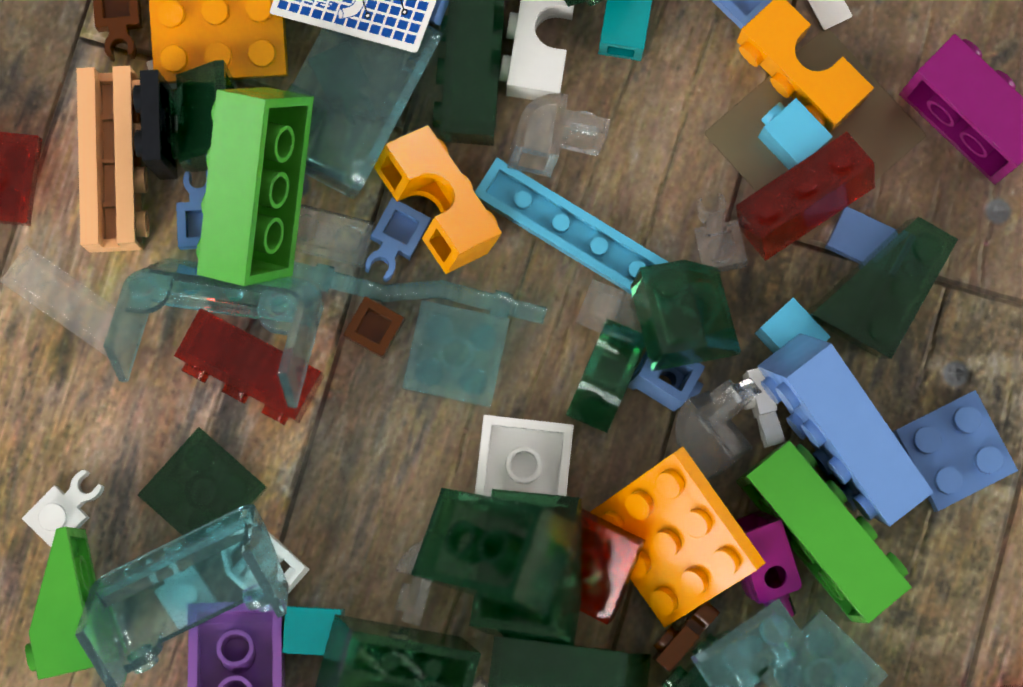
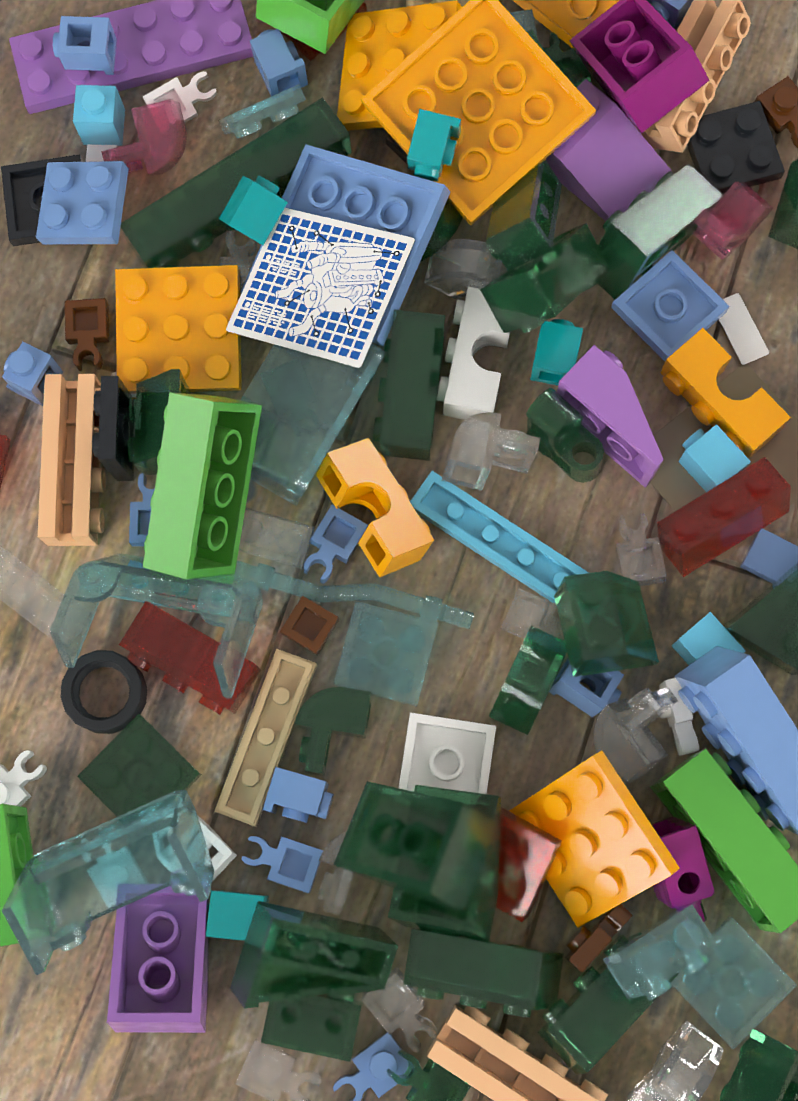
camera: 10 degrees right, 5 degrees down
(56, 65) = (25, 370): none -> medium blue brick
(138, 379) = (71, 689): none -> black tyre
(333, 446) = (266, 737): none -> tan tile
(366, 576) = (291, 863): none -> medium blue plate
(370, 505) = (298, 795): none -> medium blue brick
(399, 418) = (328, 713): none -> clear green brick
(635, 115) = (563, 435): none -> clear green piece
(677, 83) = (612, 412): none -> medium lavender slope

